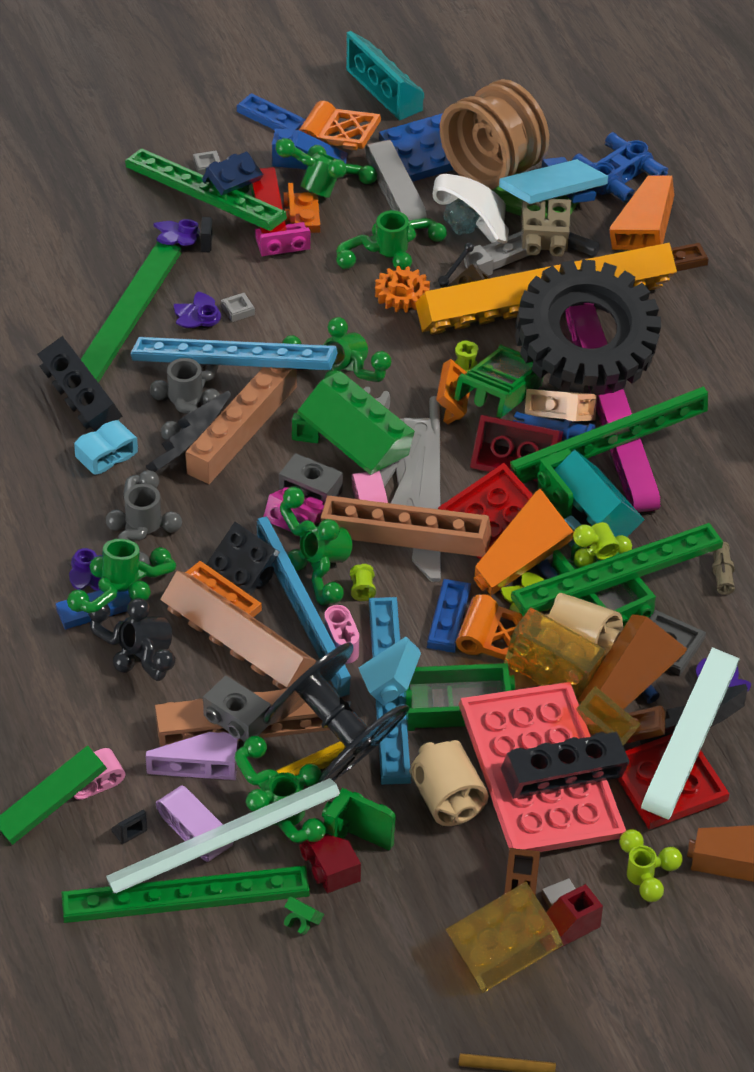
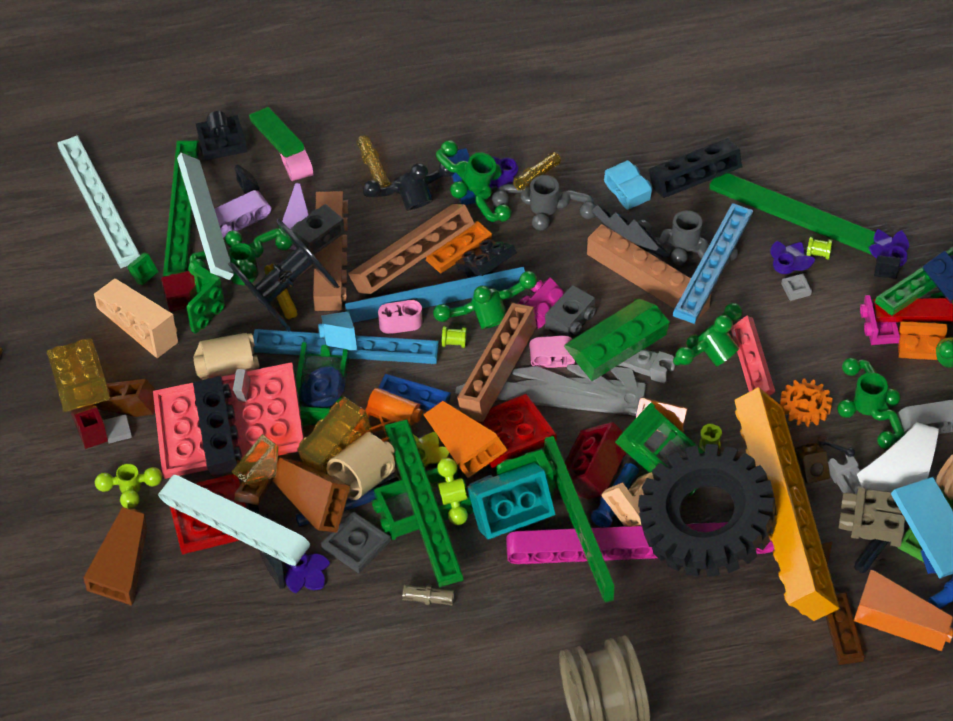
camera: 100 degrees right, 5 degrees up
(55, 865) = (220, 136): none -> black plate
(79, 696) = (371, 158): none -> clear yellow pin
(106, 525) = (538, 169): none -> clear yellow pin
(177, 995) = (98, 201): none -> light aqua tile
(183, 290) = (819, 248): none -> lime bush
(368, 326) = (752, 356): none -> coral plate
(390, 896) = (138, 317): none -> light nougat wedge
(470, 678) = (322, 387): none -> dark blue tile
(506, 739) = (241, 384): none -> light grey tile

